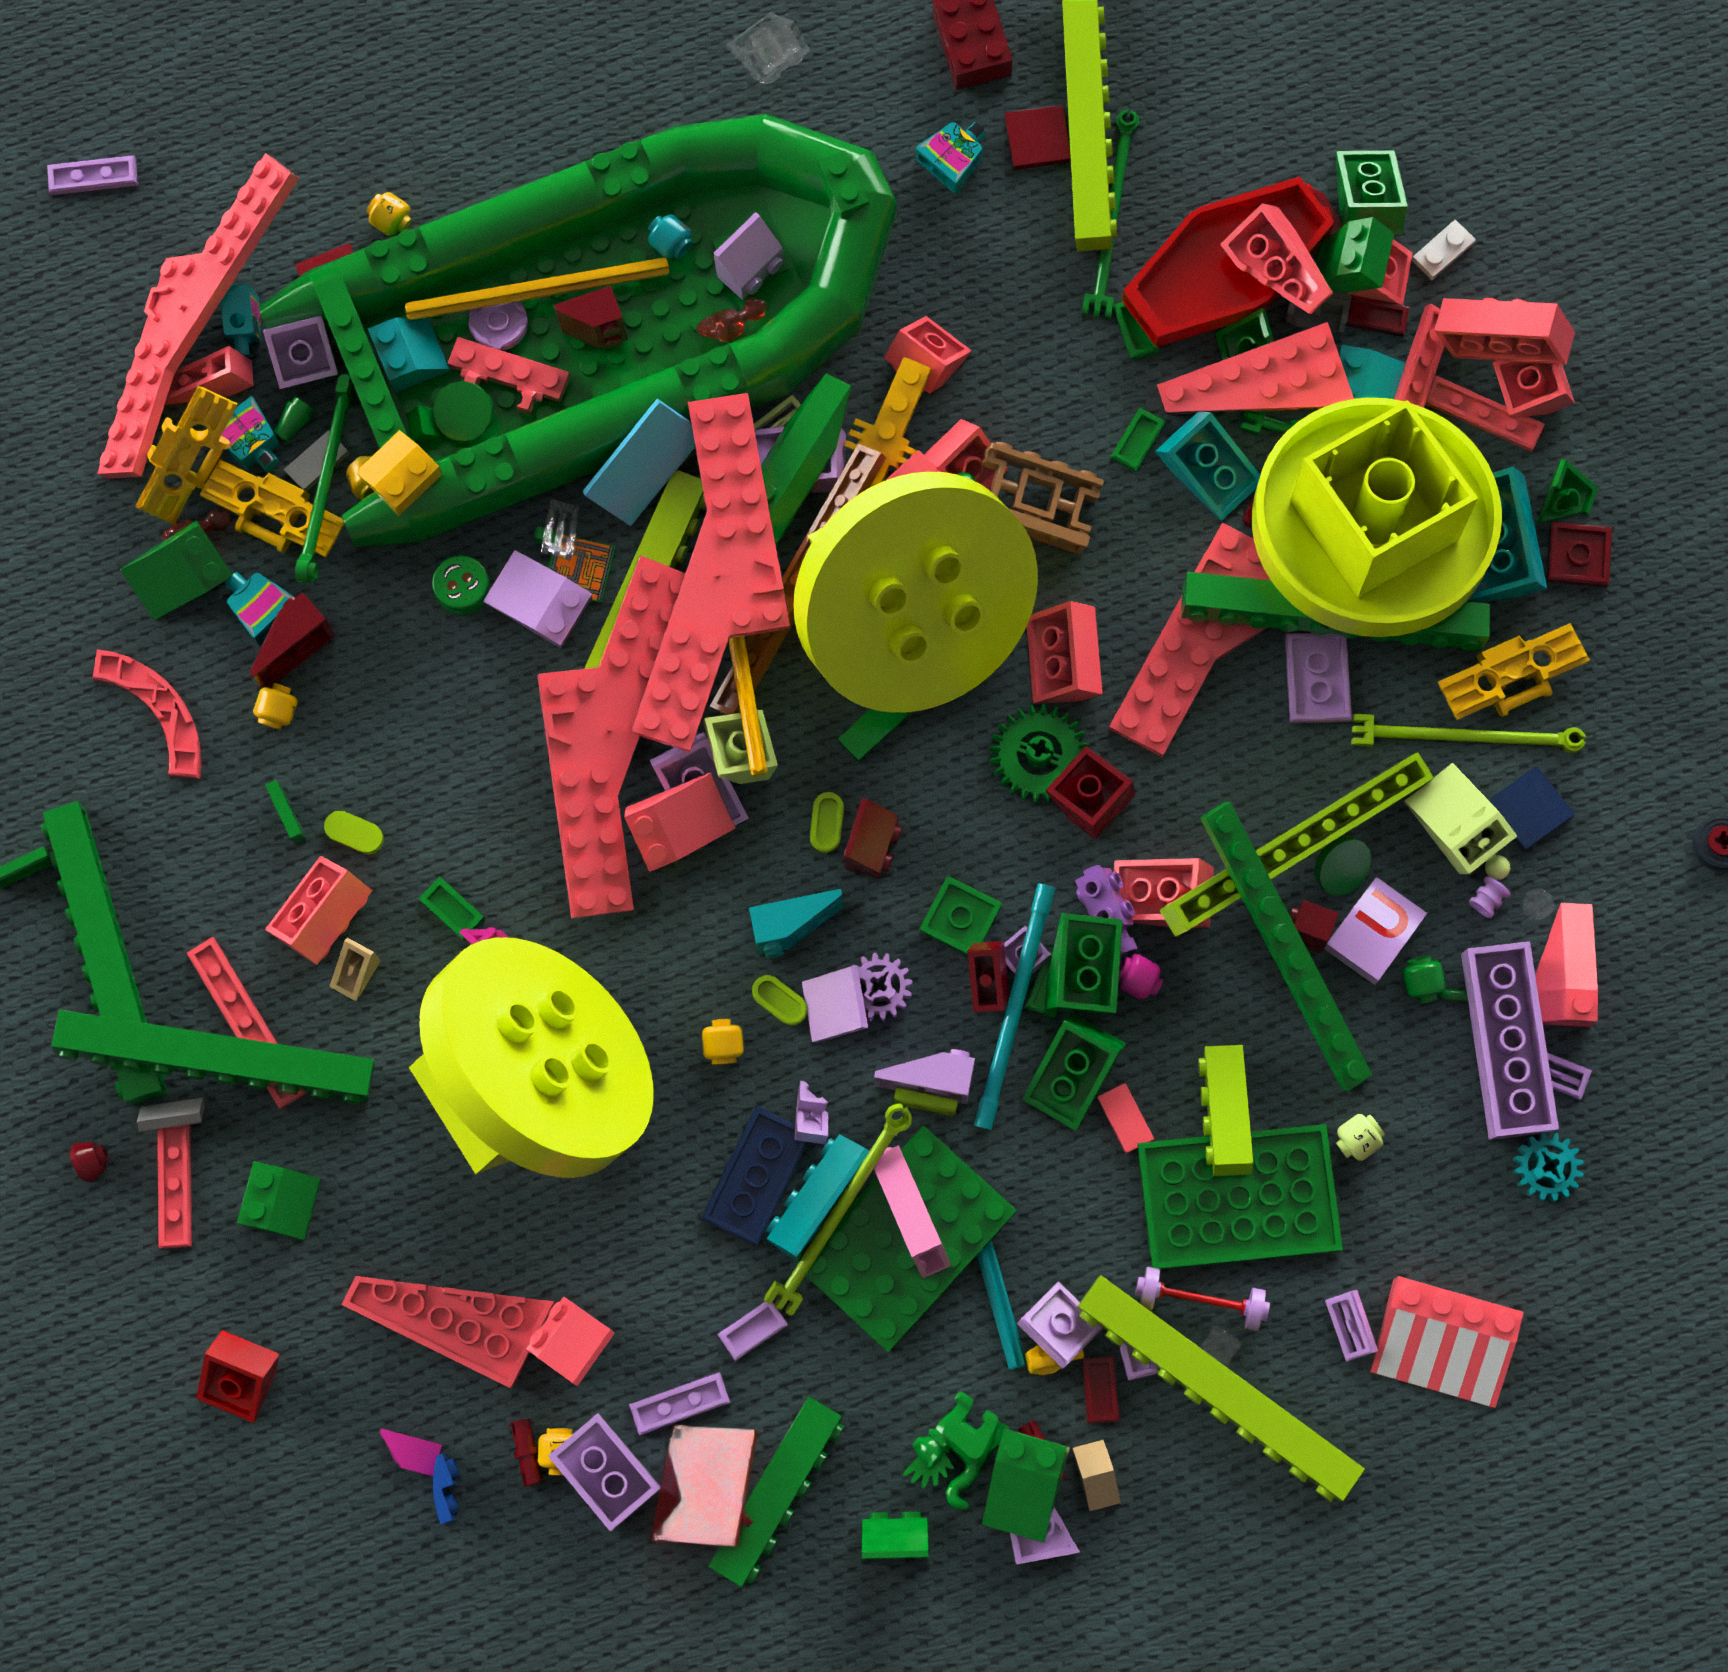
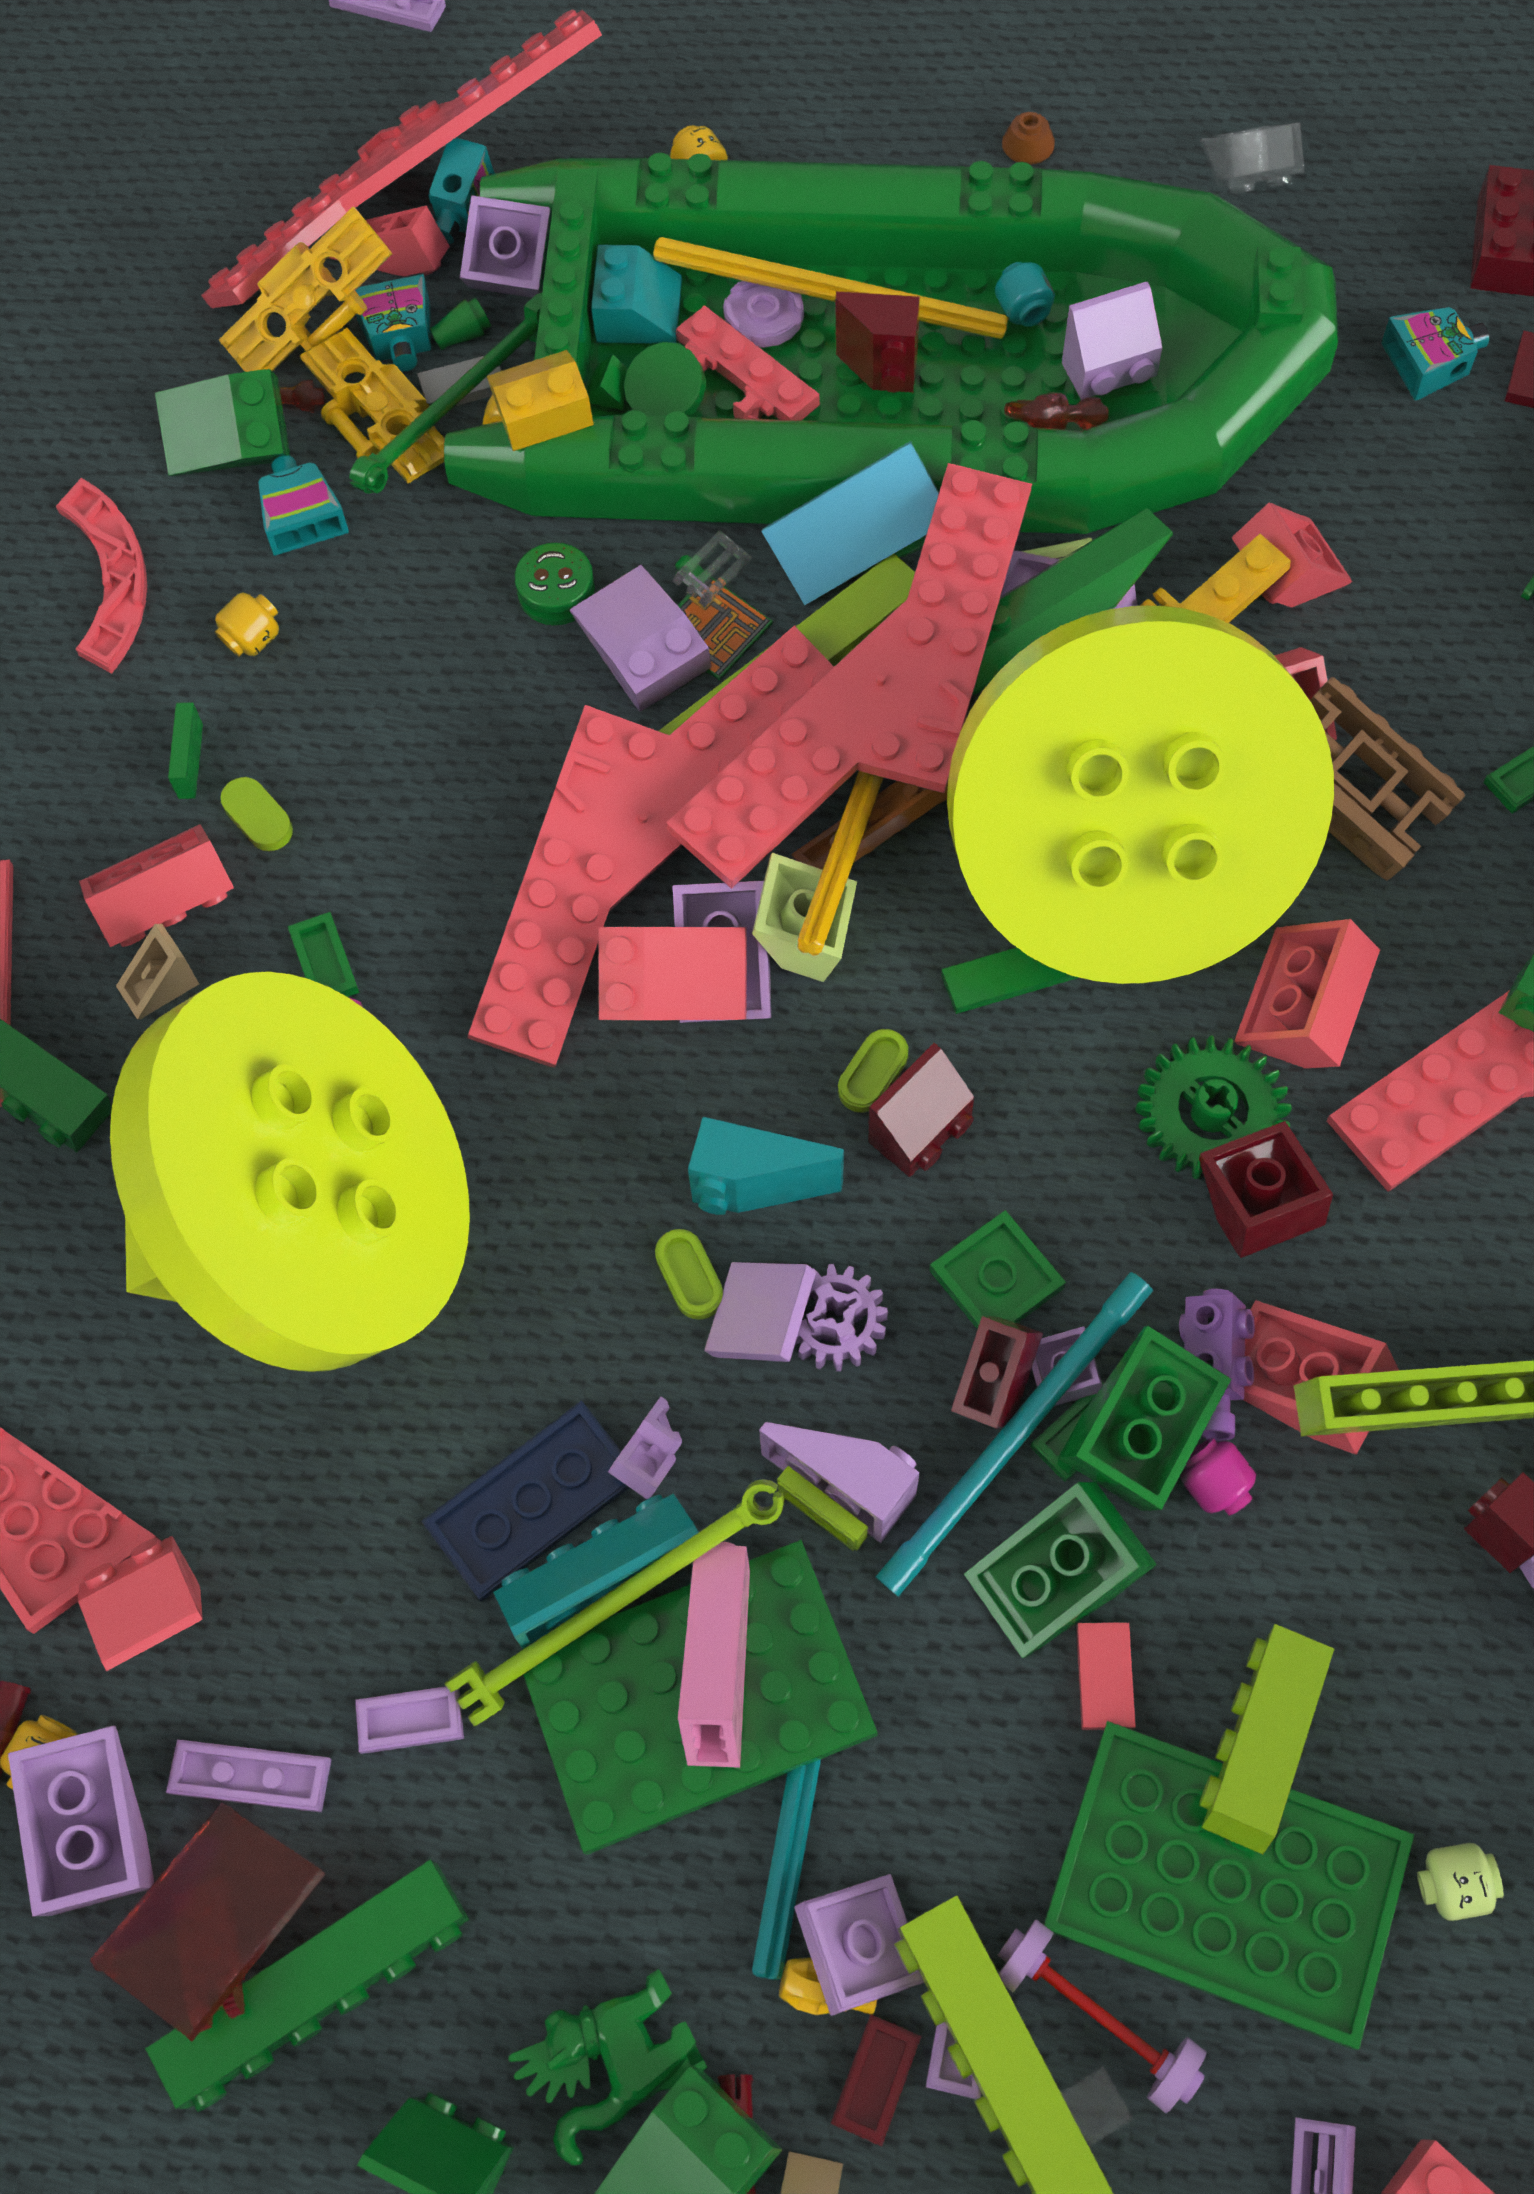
camera: 25 degrees right, 10 degrees down
(293, 638) = (304, 553): dark red slope -> none
(609, 100) = (1028, 139): none -> dark orange cone
(722, 1042) = (580, 1290): yellow head -> none
(1286, 946) = (1468, 1532): green plate -> none

